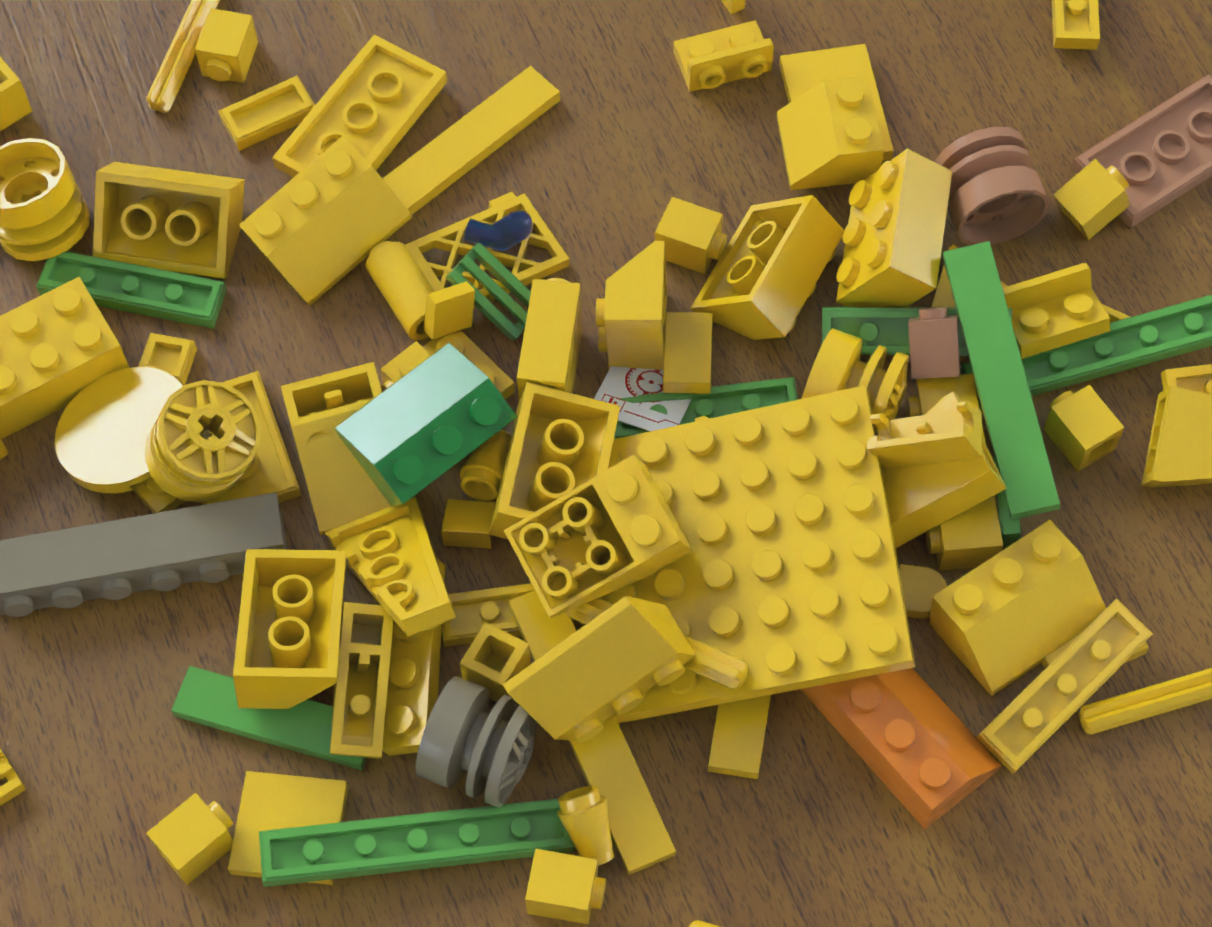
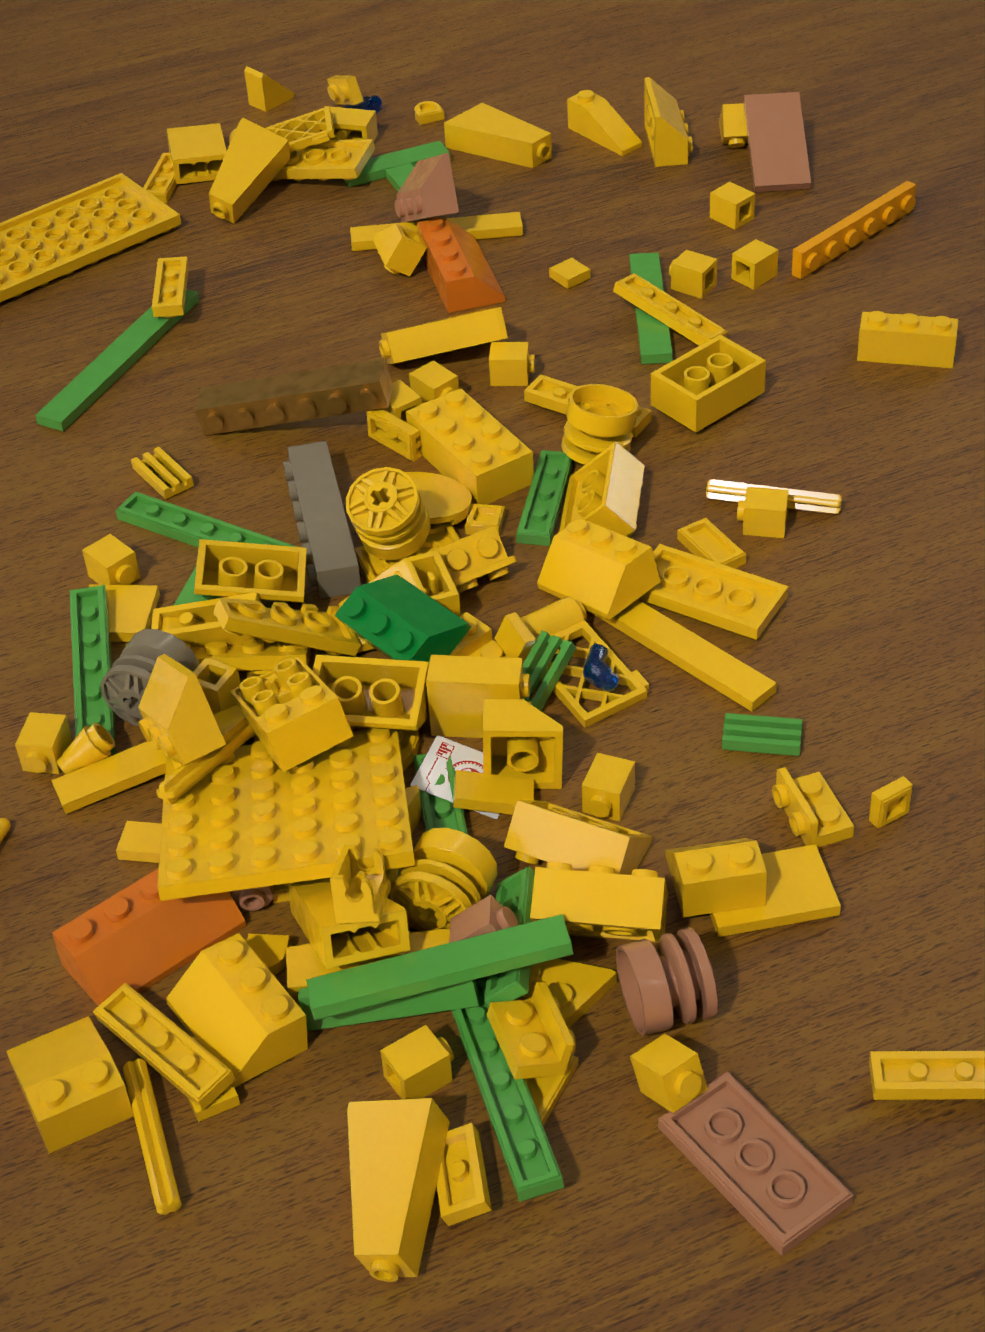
camera: 90 degrees right, 20 degrees down
(124, 721) = (184, 523): none -> bright green tile
(267, 360) = (475, 557): none -> yellow bracket
(610, 63) = (762, 734): none -> bright green tile
(1109, 788) = (70, 1084): none -> yellow slope

